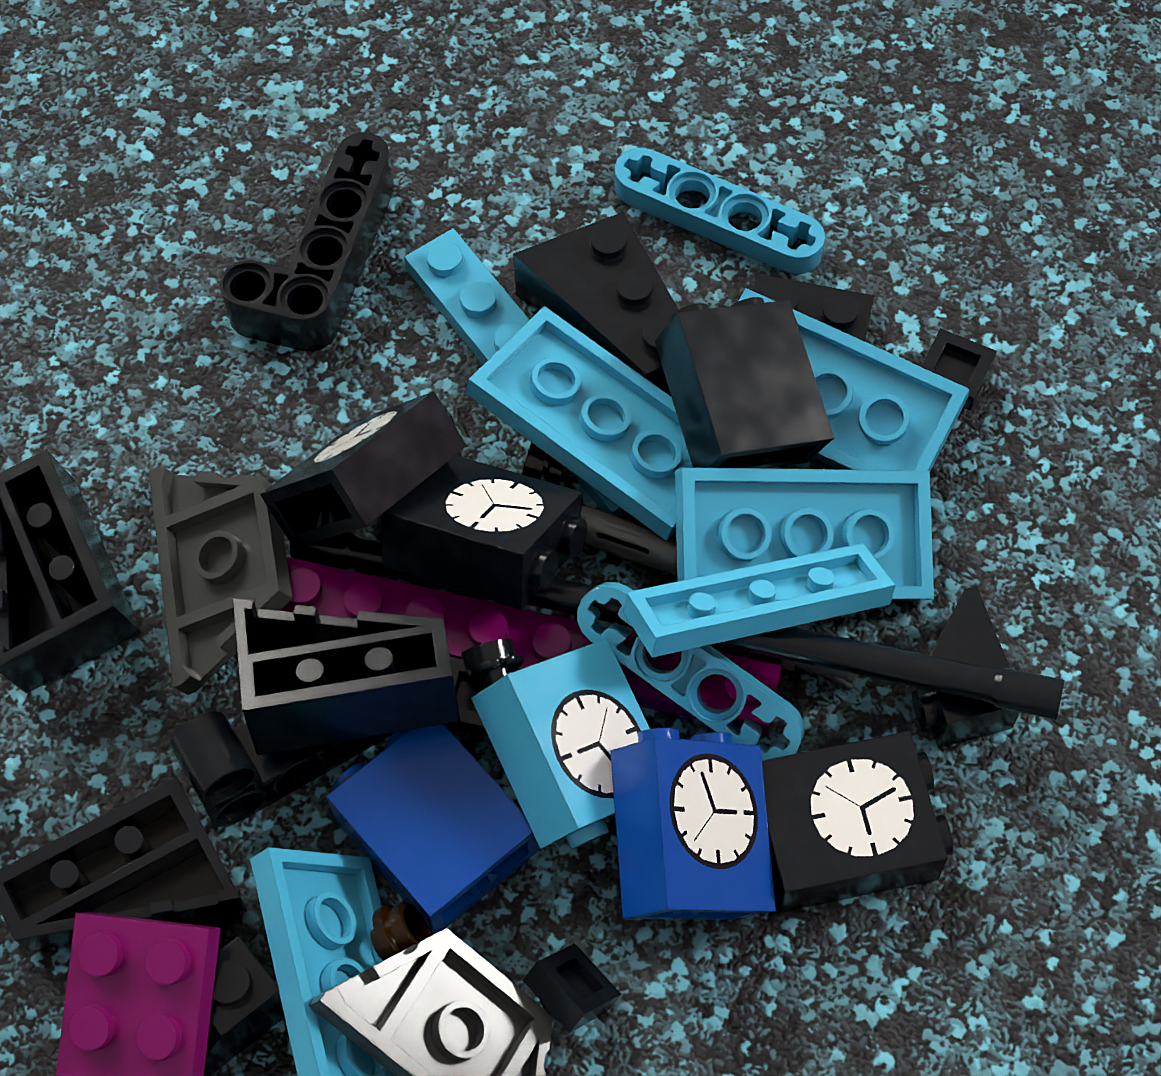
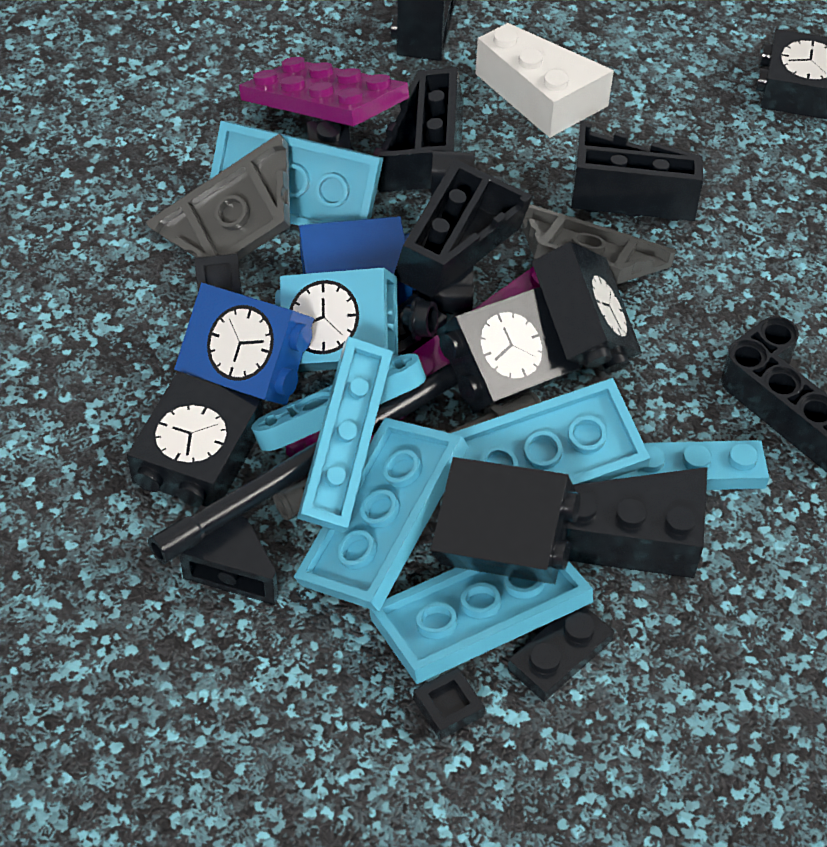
camera: 120 degrees right, 10 degrees down
(397, 929) = (304, 207): dark brown plate -> none
(723, 202) = (685, 641): medium azure beam -> none

